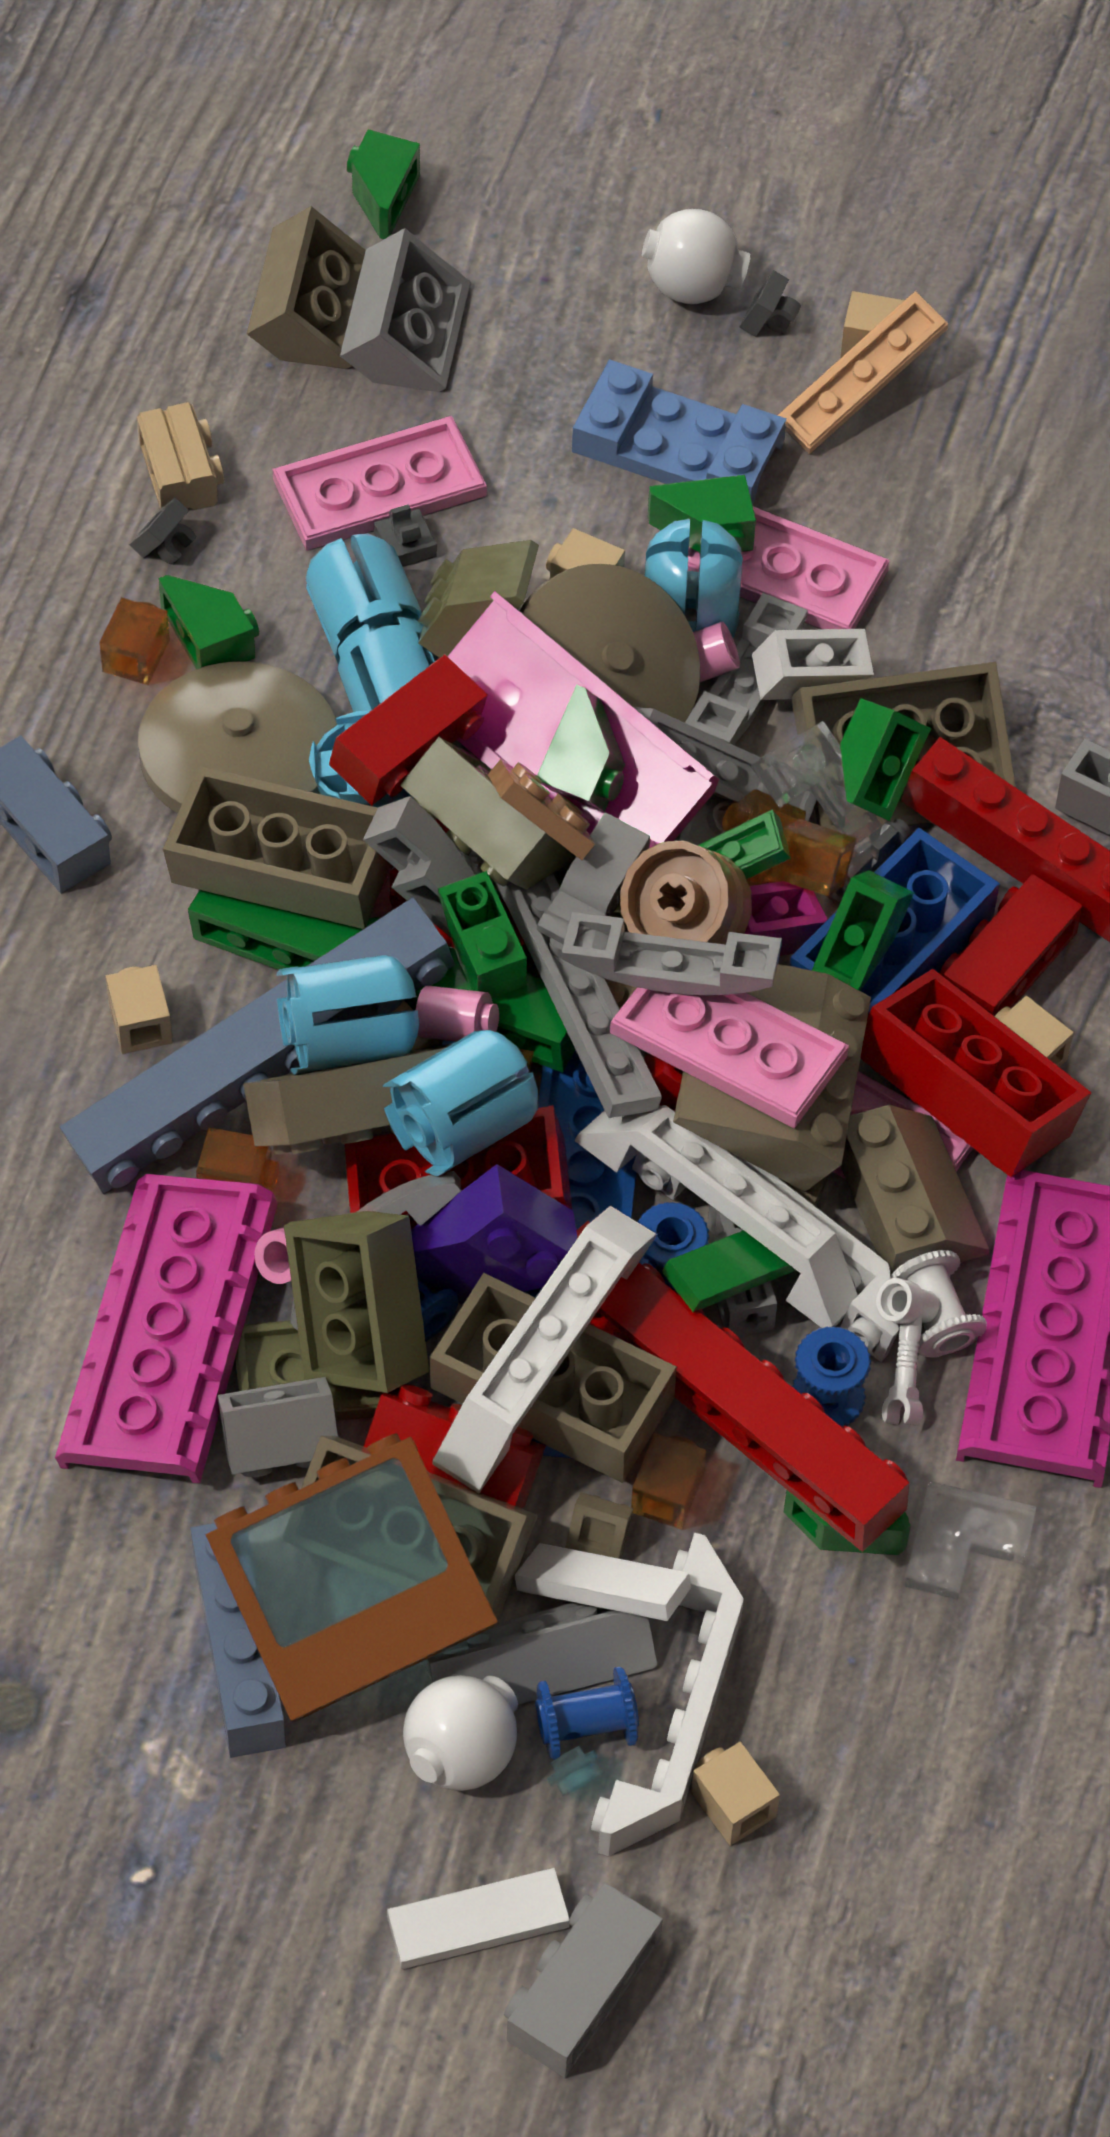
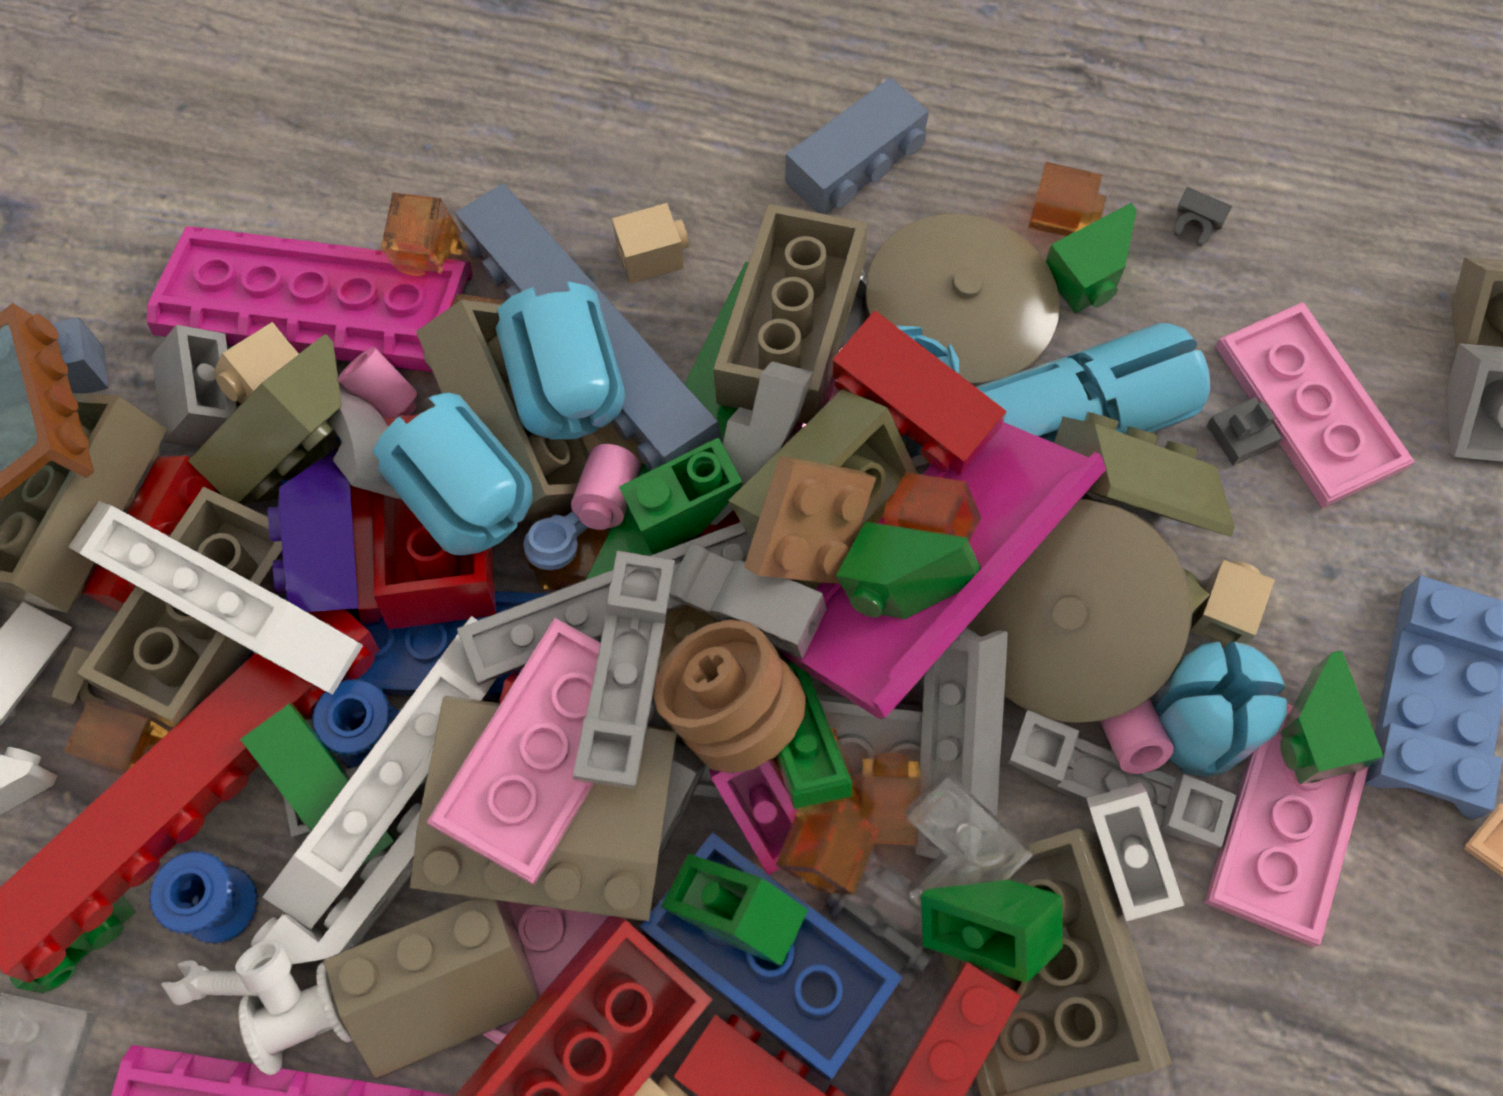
camera: 90 degrees right, 10 degrees up
(127, 1198) = (419, 234): none -> clear orange arch
(178, 456) = (1294, 217): tan brick -> none
(272, 1345) = (252, 362): none -> tan brick
(526, 730) = (933, 506): none -> clear orange brick

